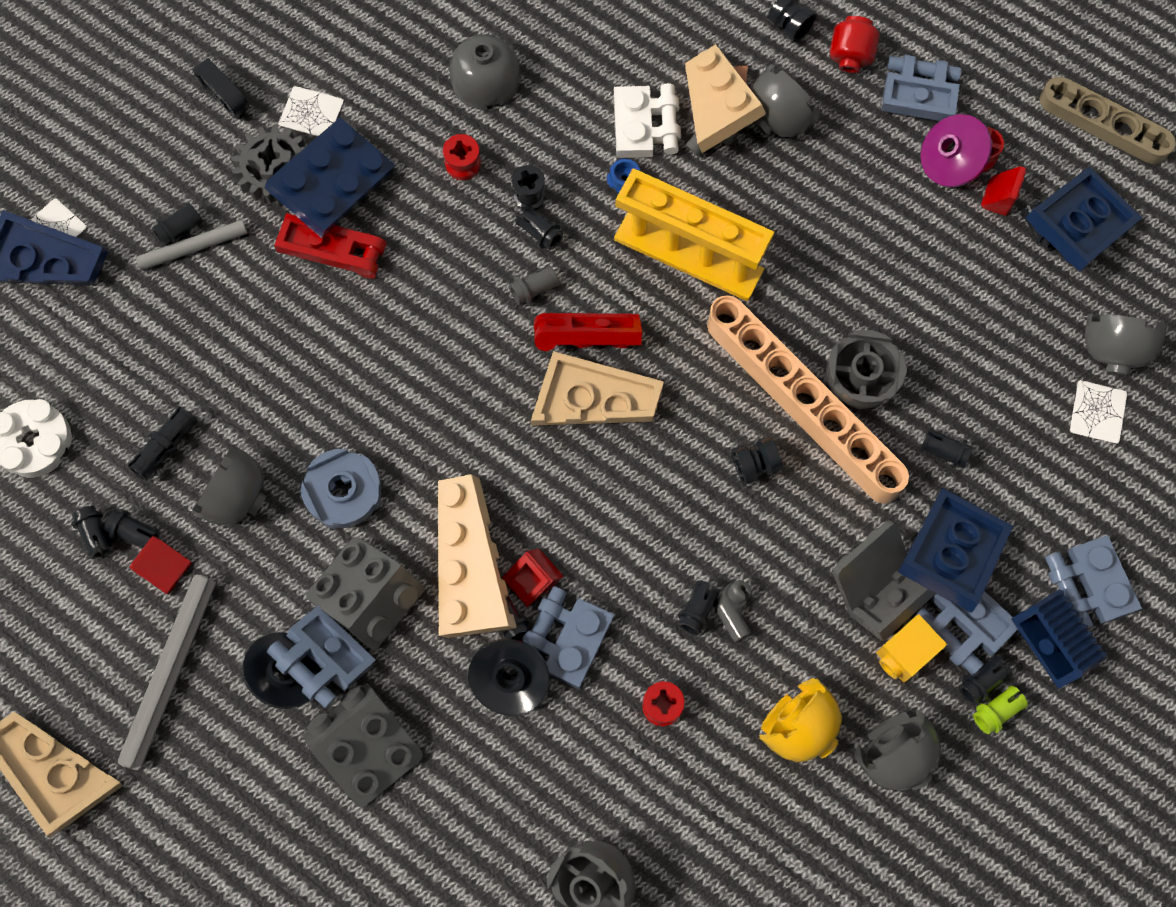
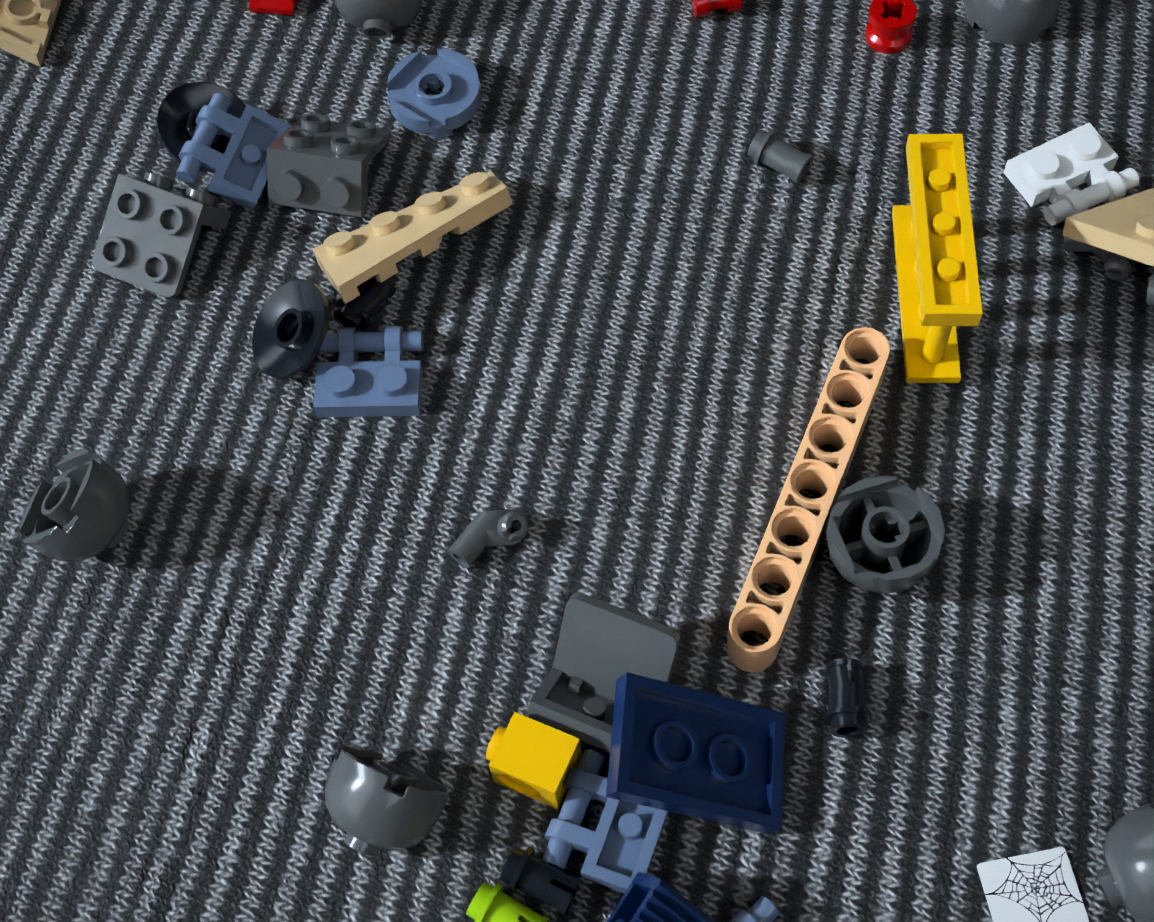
camera: 70 degrees right, 10 degrees down
(166, 673) = (167, 42): light grey axle -> none
(528, 187) = (895, 89): black bush -> none
(532, 576) = (430, 309): red slope -> none
(540, 228) = (853, 137): black pin -> none
(586, 330) = (755, 228): red plate -> none
(593, 393) = (680, 270): tan wing -> none
(617, 170) = (990, 178): blue plate -> none
(663, 712) = (338, 514): red wheel -> none
(698, 608) = (470, 491): black pin -> none
(756, 460) = (694, 472): black wheel -> none
(804, 725) = (367, 667): yellow cylinder -> none

